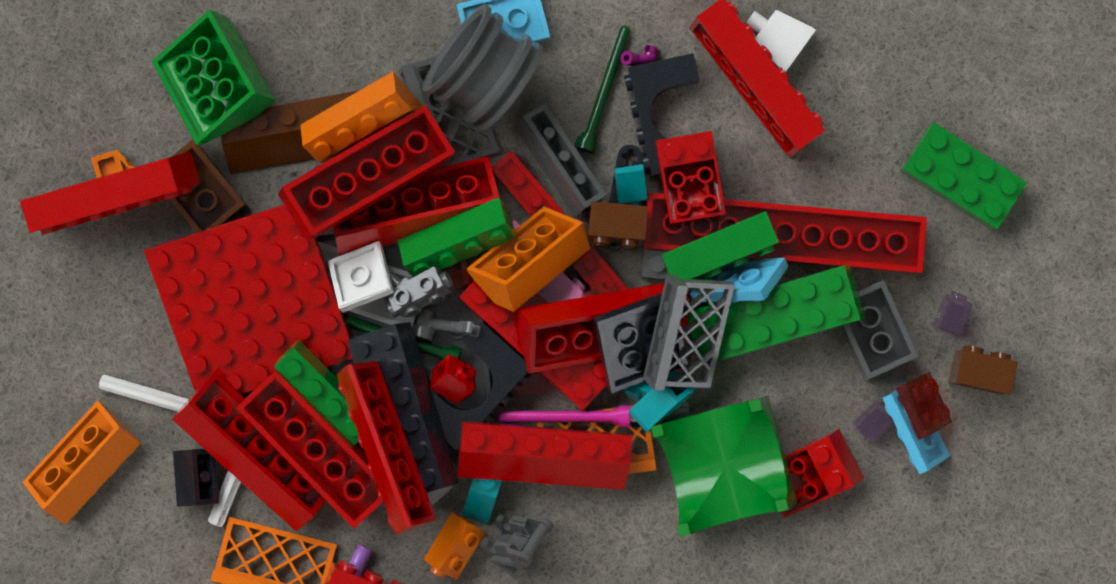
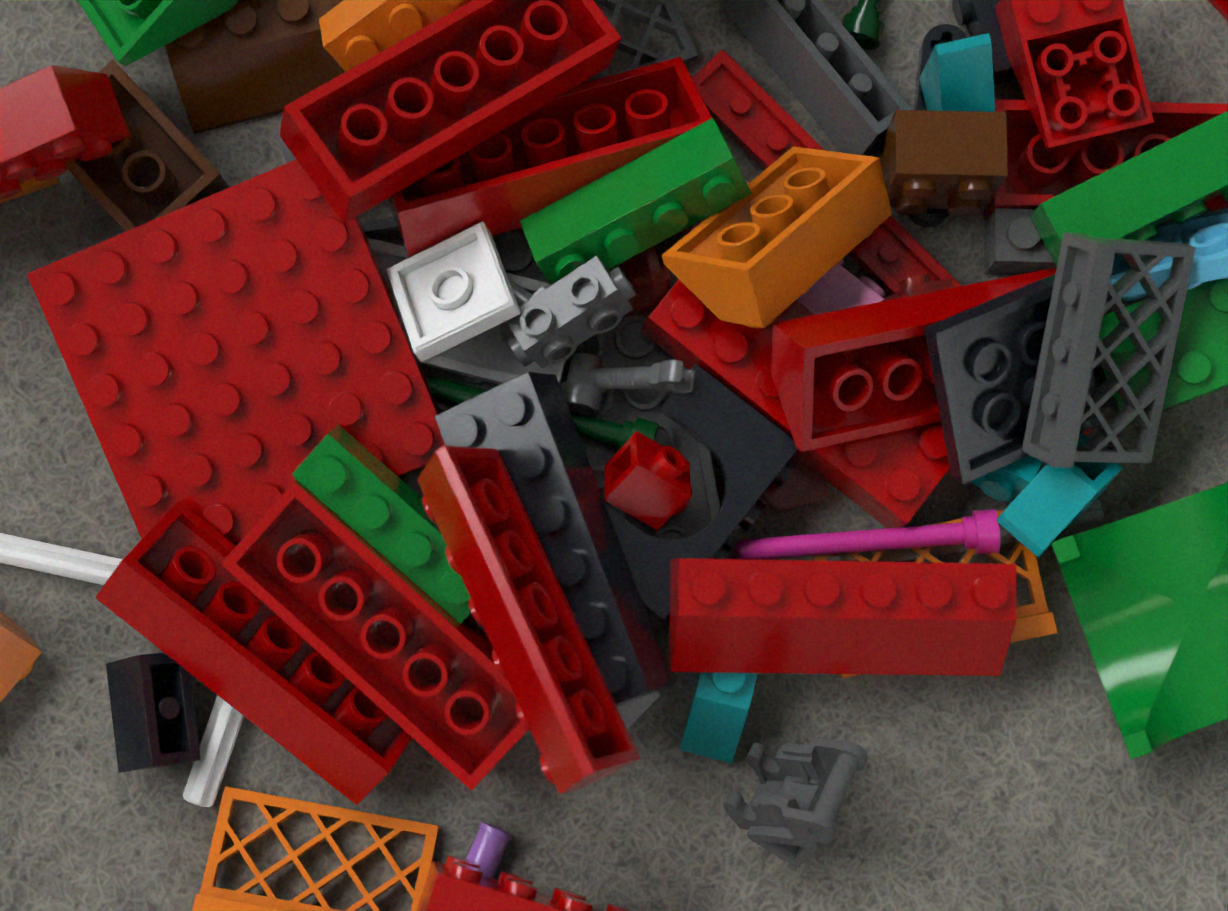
camera: 10 degrees left, 5 degrees down
(453, 546) = (670, 814): orange brick -> none

